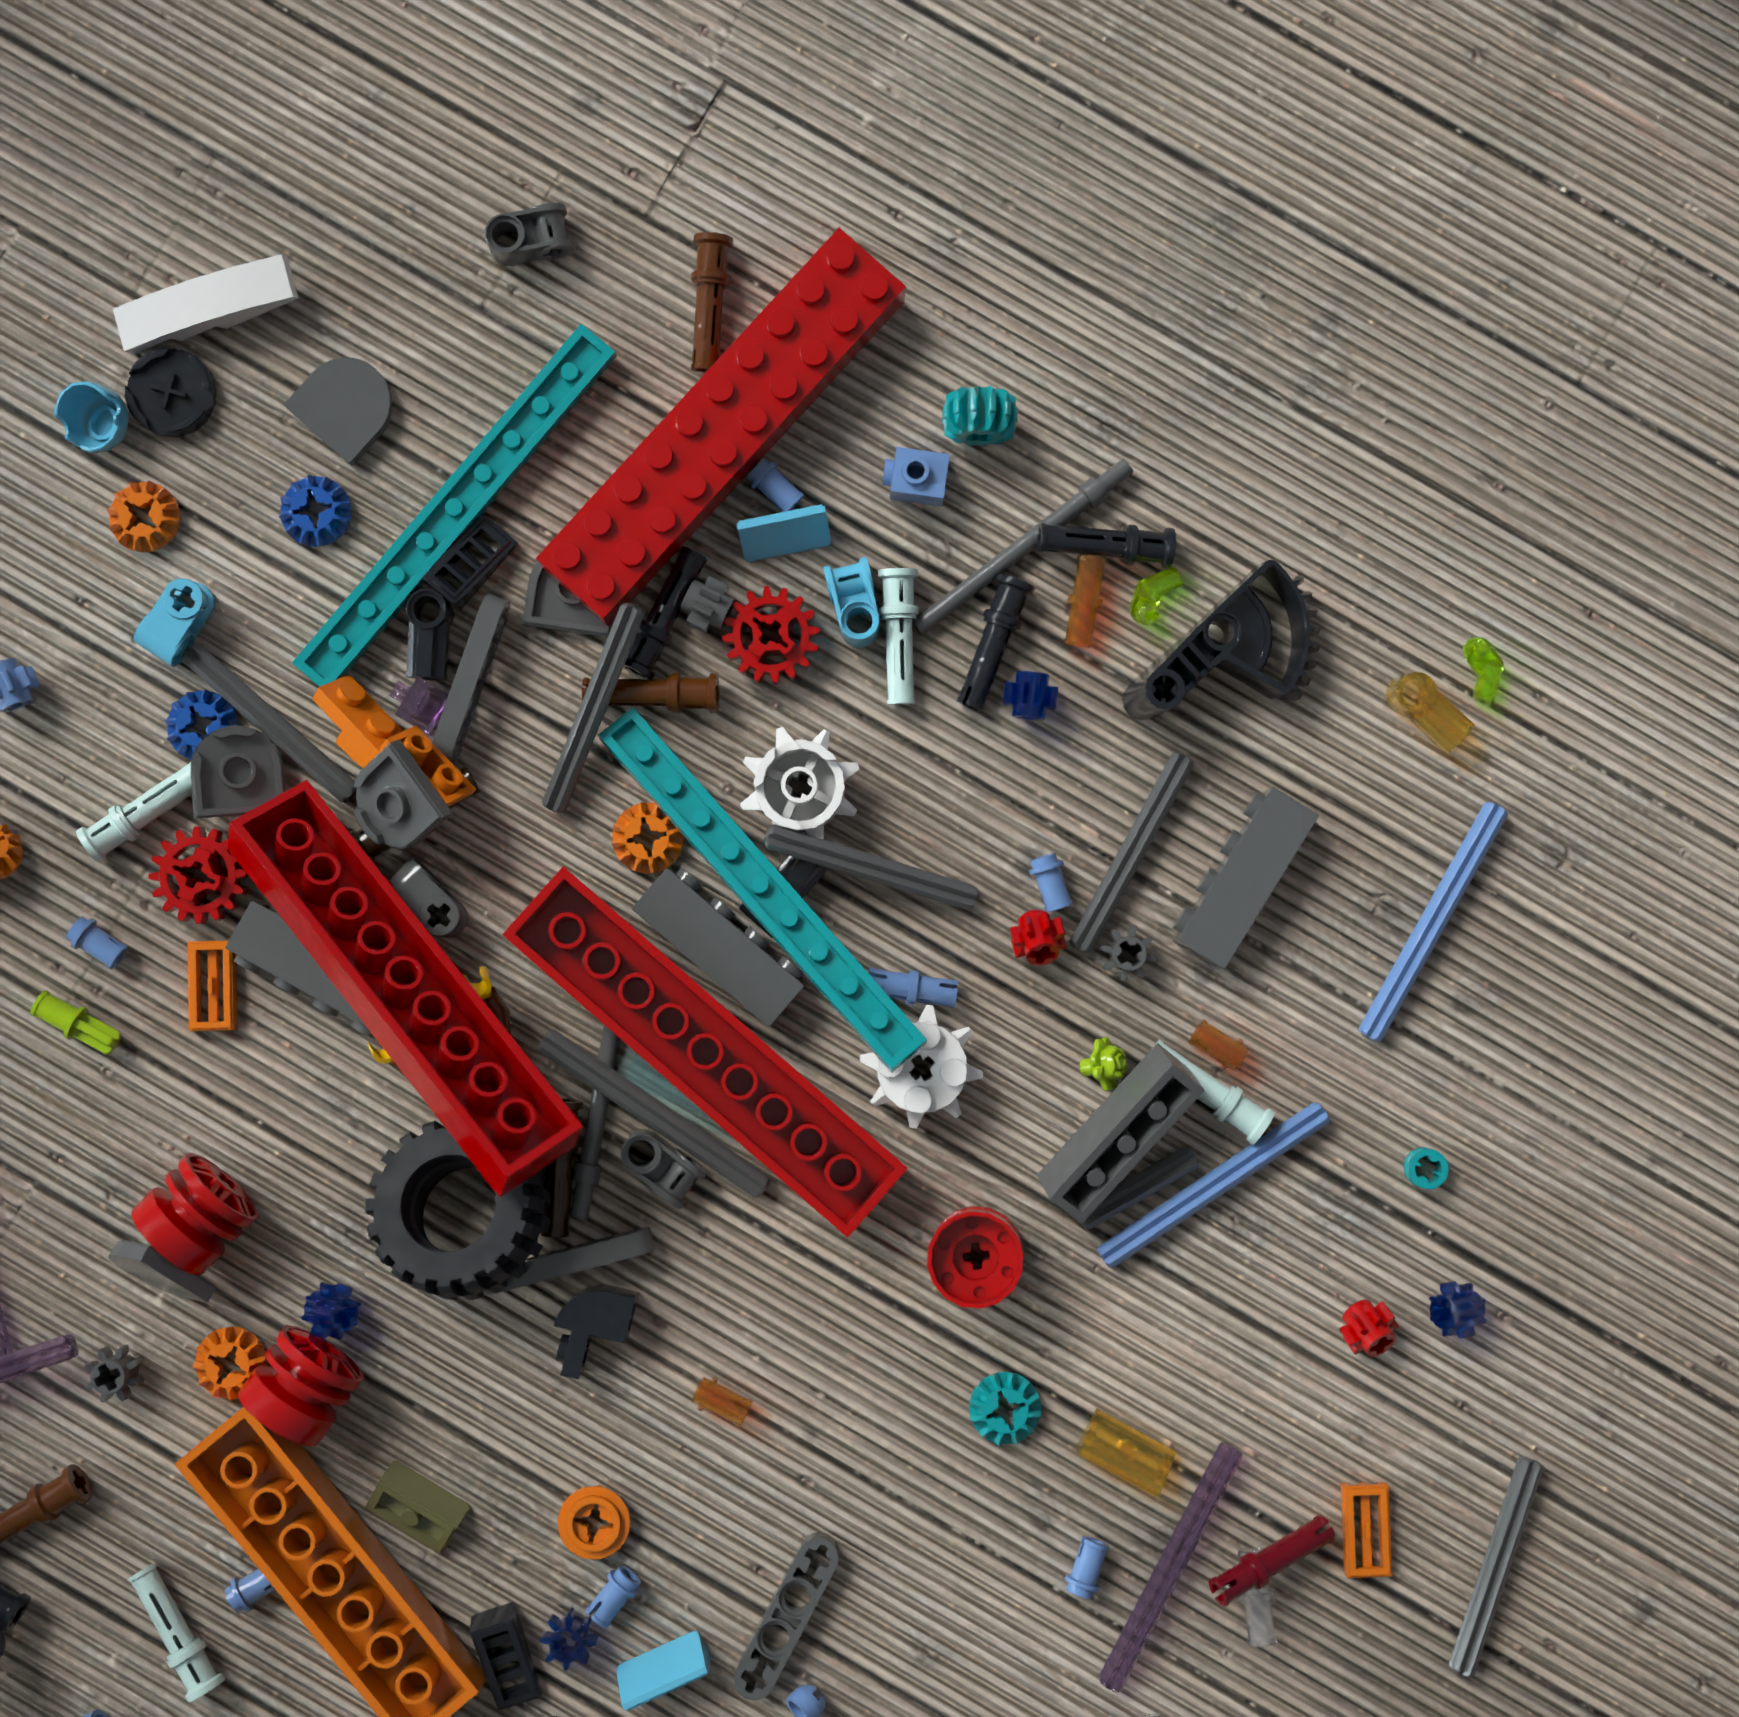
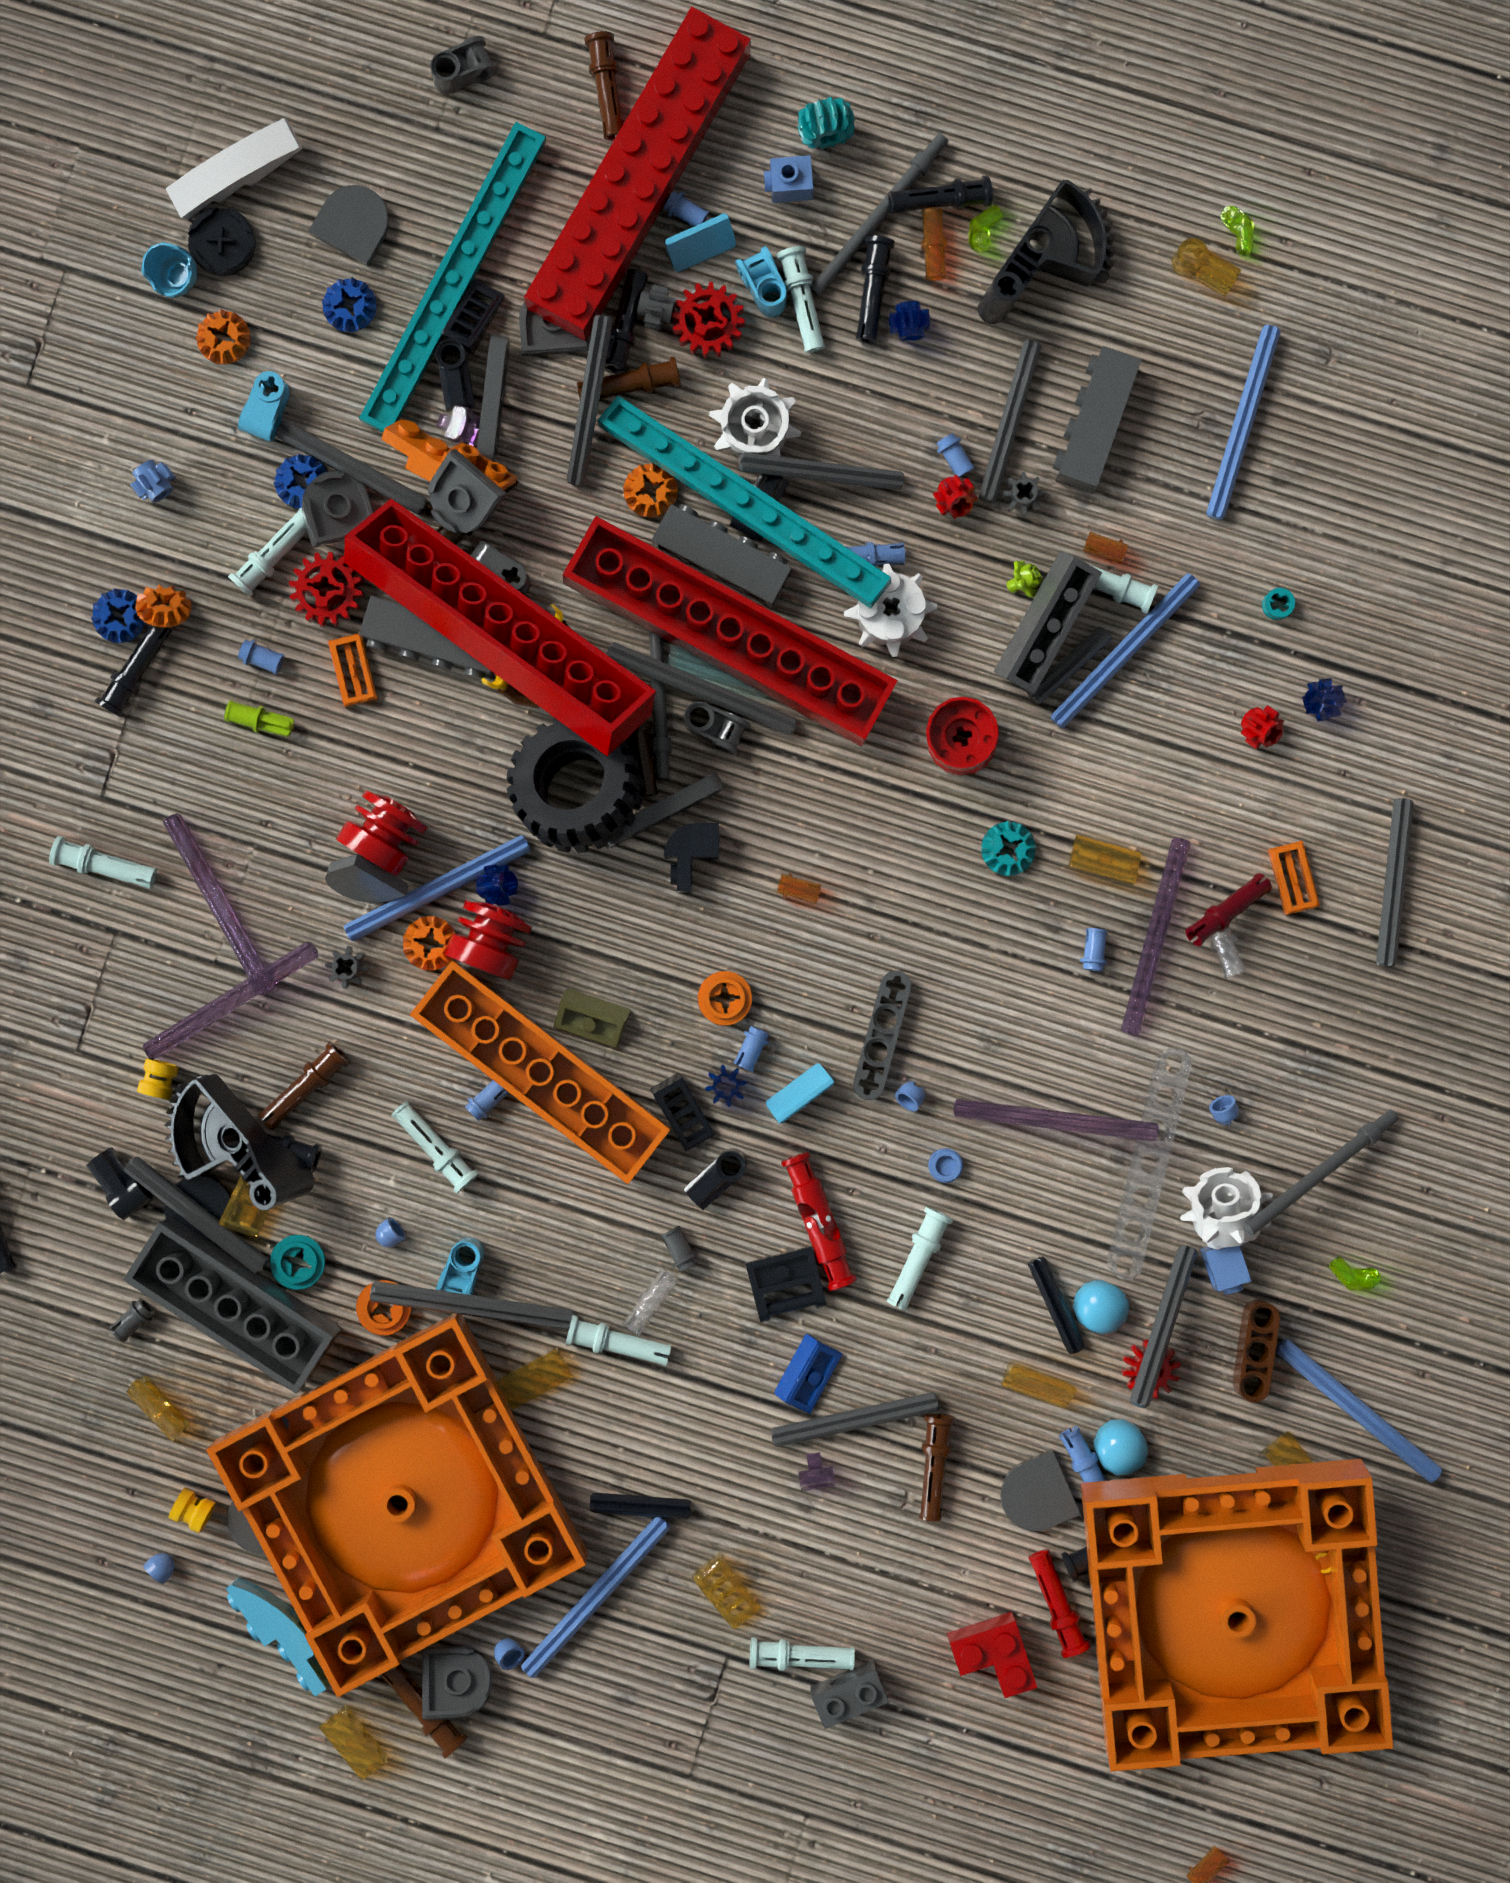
camera: 10 degrees left, 0 degrees up
(253, 1294) = (436, 888): none -> medium blue axle

